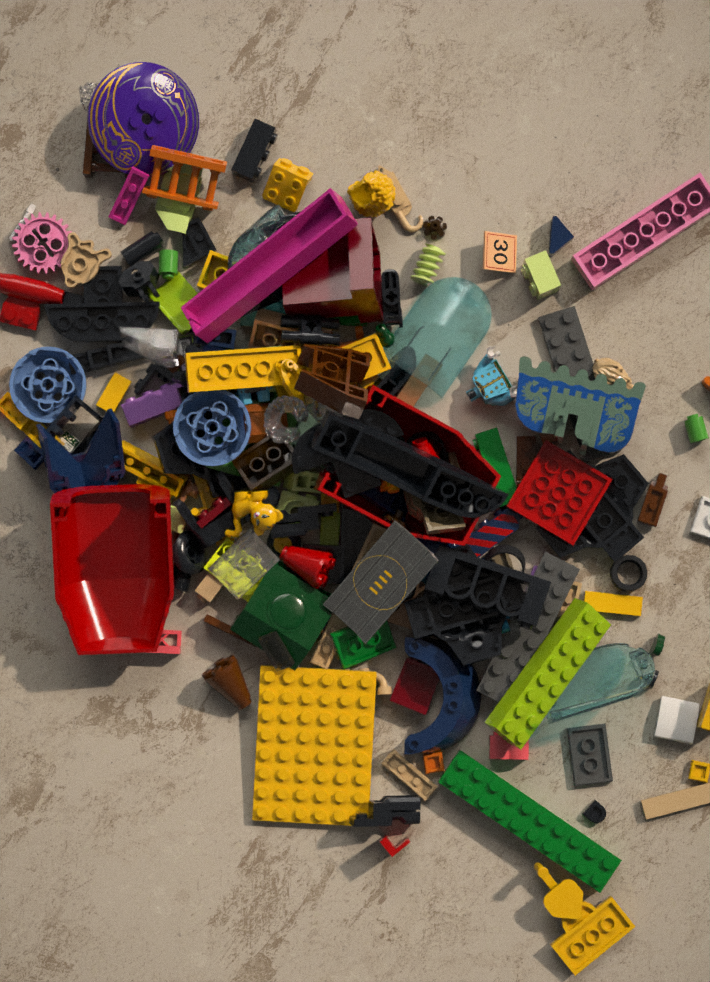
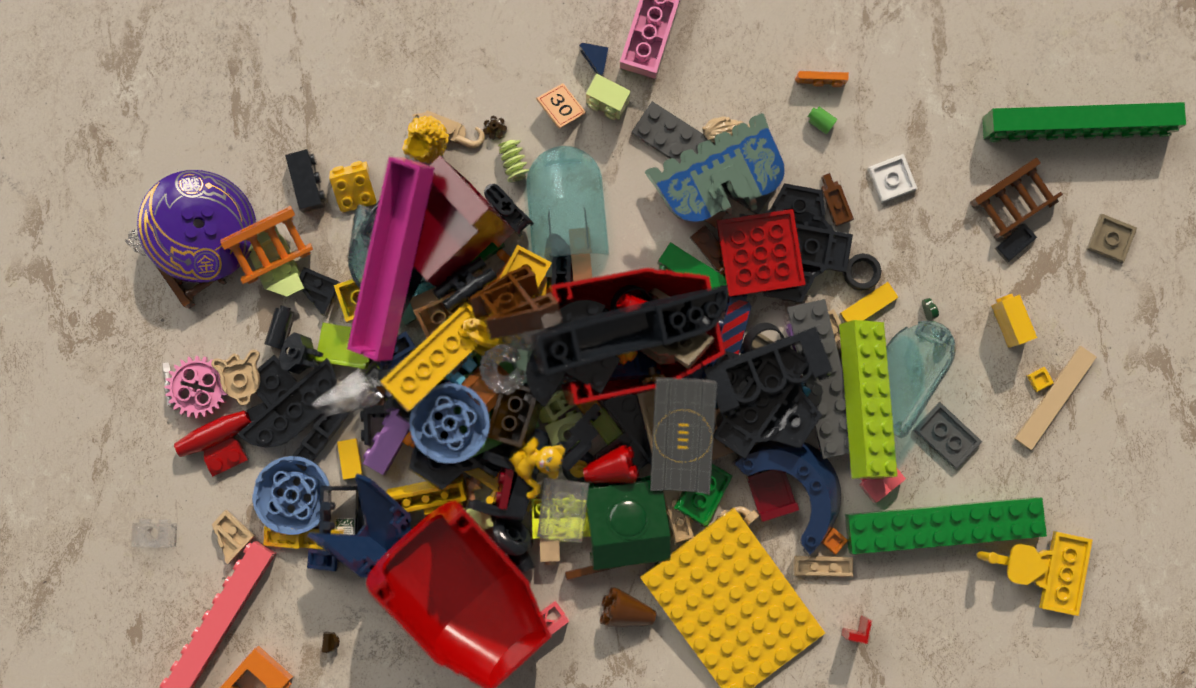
camera: 45 degrees left, 0 degrees up
(128, 195) = (234, 294): dark pink plate -> none
(168, 263) = (309, 323): bright green brick -> none
(276, 651) = (644, 557): clear smoke tile -> none
(385, 336) = (526, 241): dark green piece -> none
(389, 808) = (830, 609): black plate -> none
(491, 382) = (637, 210): medium azure torso -> none
(595, 812) = (988, 476): black tile -> none
(676, 720) = (991, 354): white slope -> none

